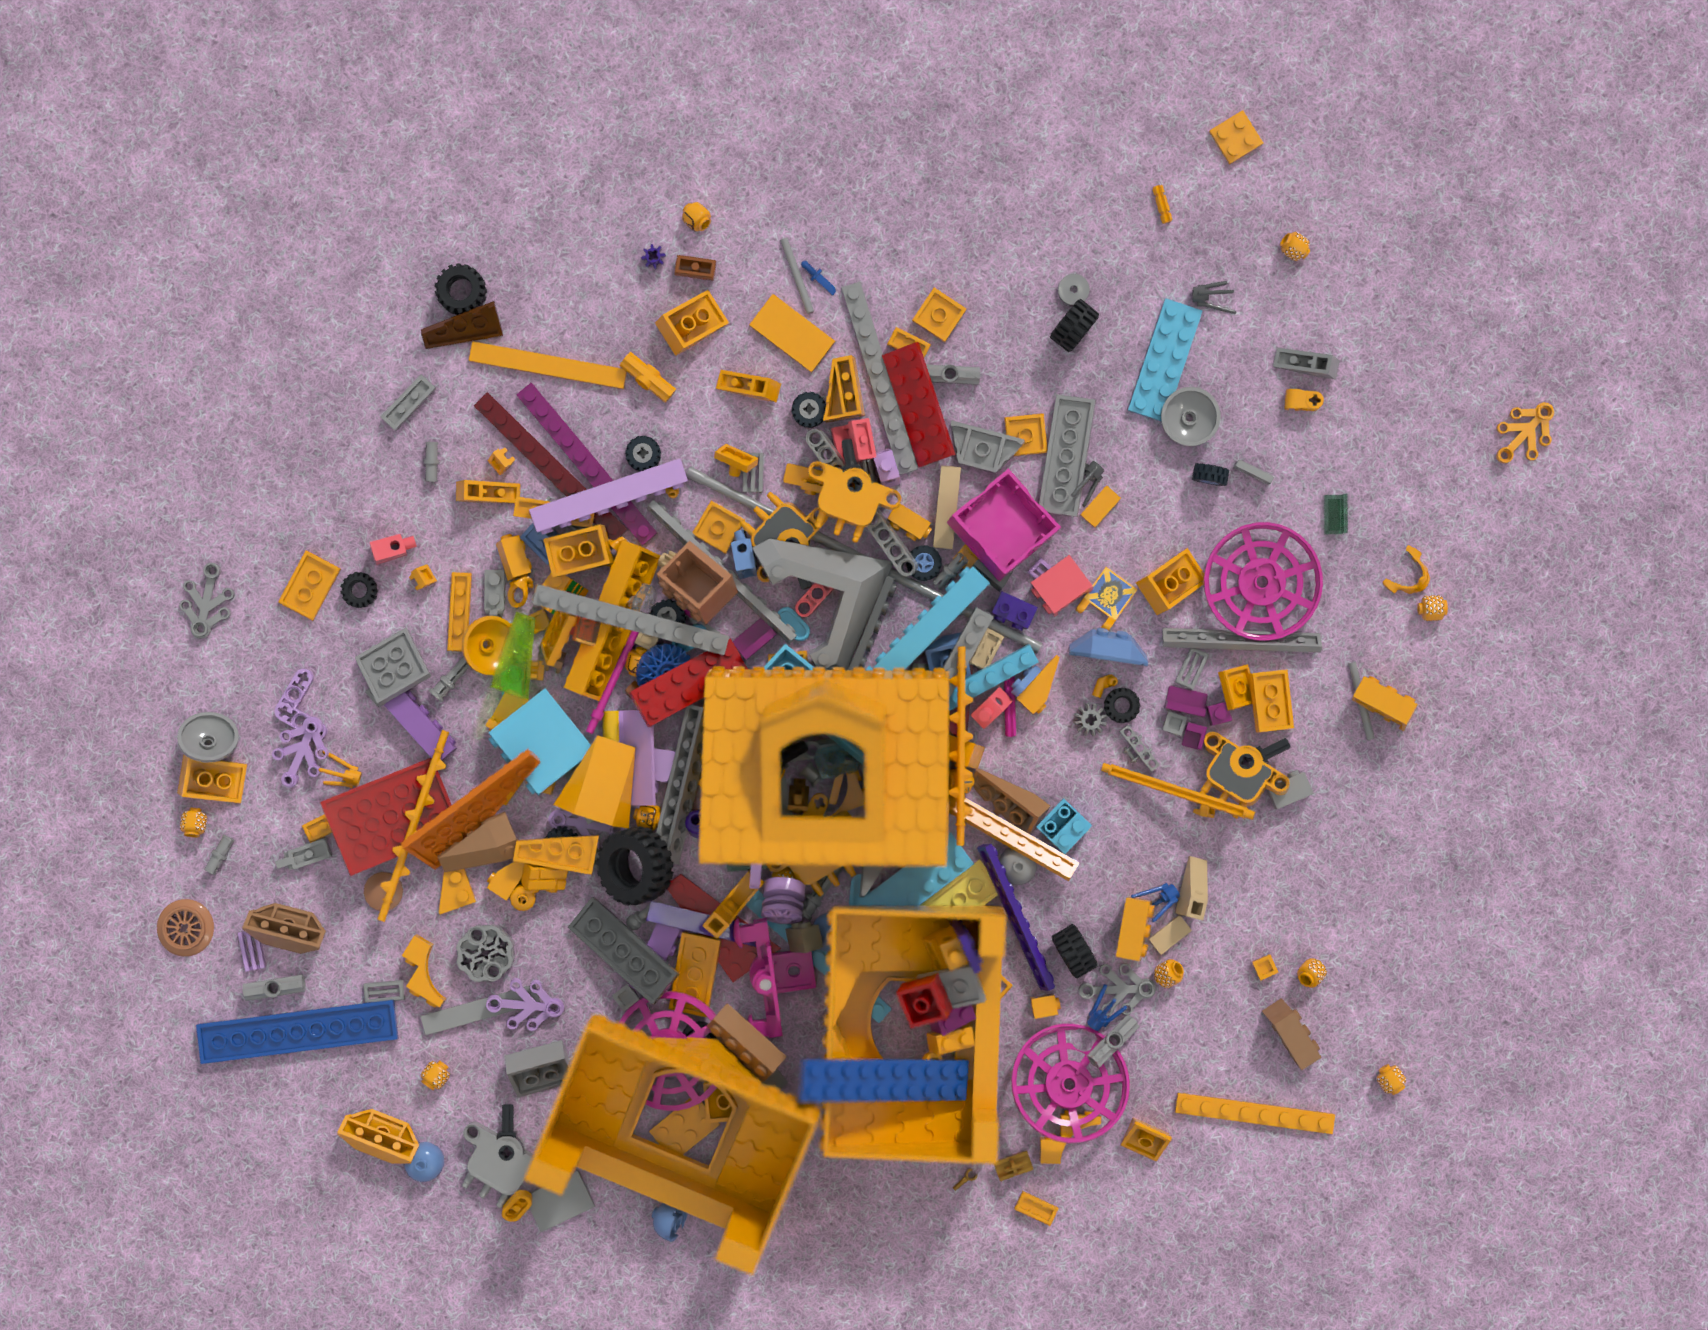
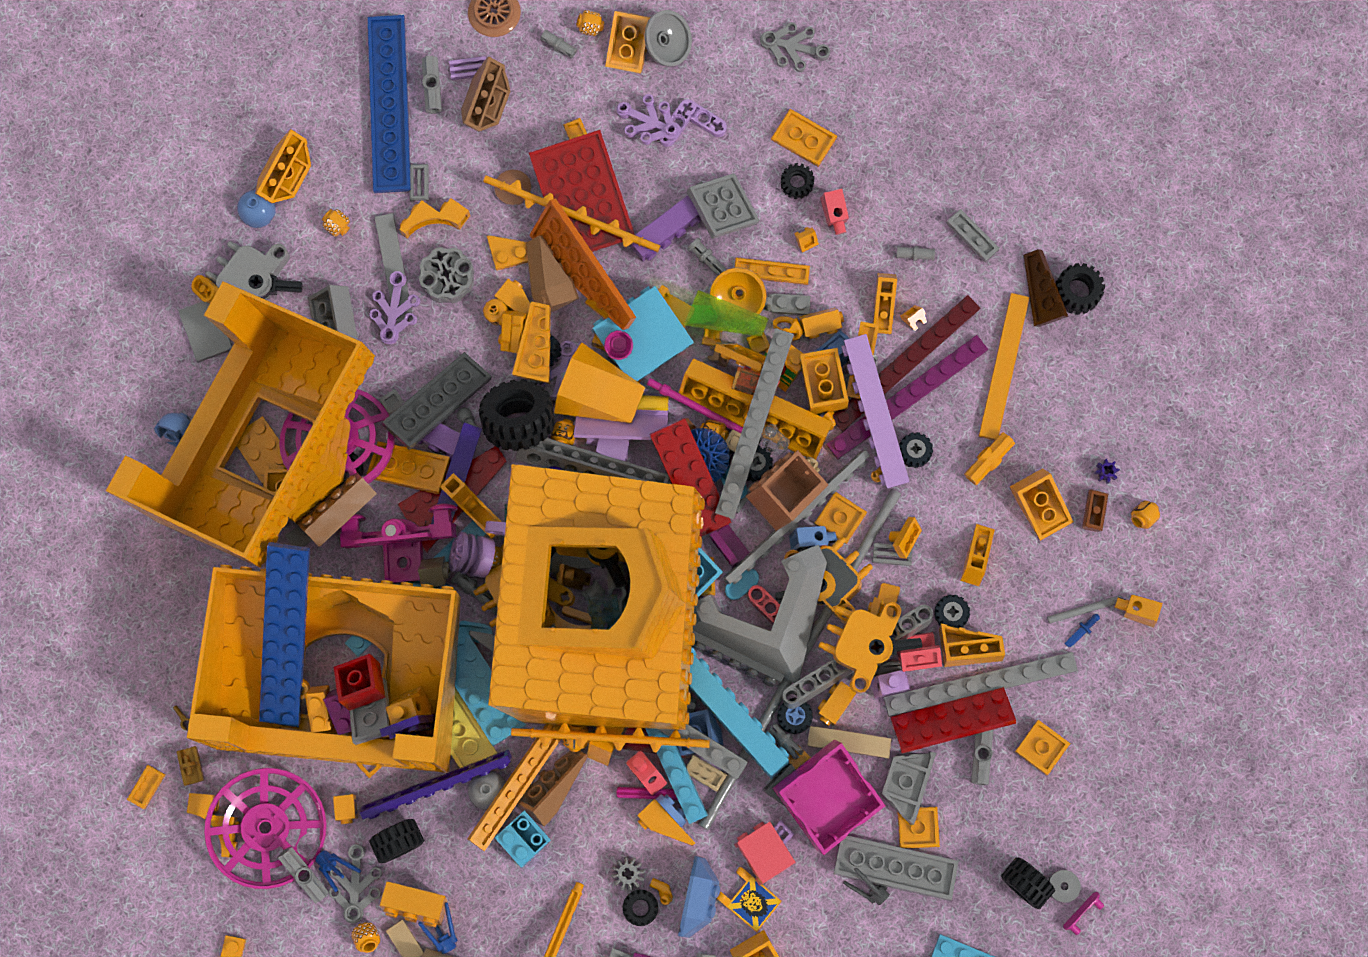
camera: 90 degrees right, 10 degrees down
(305, 855) = (552, 119): light grey hinge -> none
(351, 777) = (622, 163): light orange plant -> none
(556, 765) = (618, 345): none -> dark pink hair
(792, 333) = (1028, 601): light orange tile -> none
(796, 211) = (1147, 613): none -> light orange torso
(902, 338) = (1020, 707): light orange plate -> none
(1014, 611) = (742, 803): dark purple brick -> none
(1100, 506) = (843, 899): light orange tile -> none
(1108, 281) = (1070, 923): none -> dark pink piece
(1140, 754) = (589, 923): light grey piece -> none
(1145, 1139) = (202, 903): light orange slope -> none

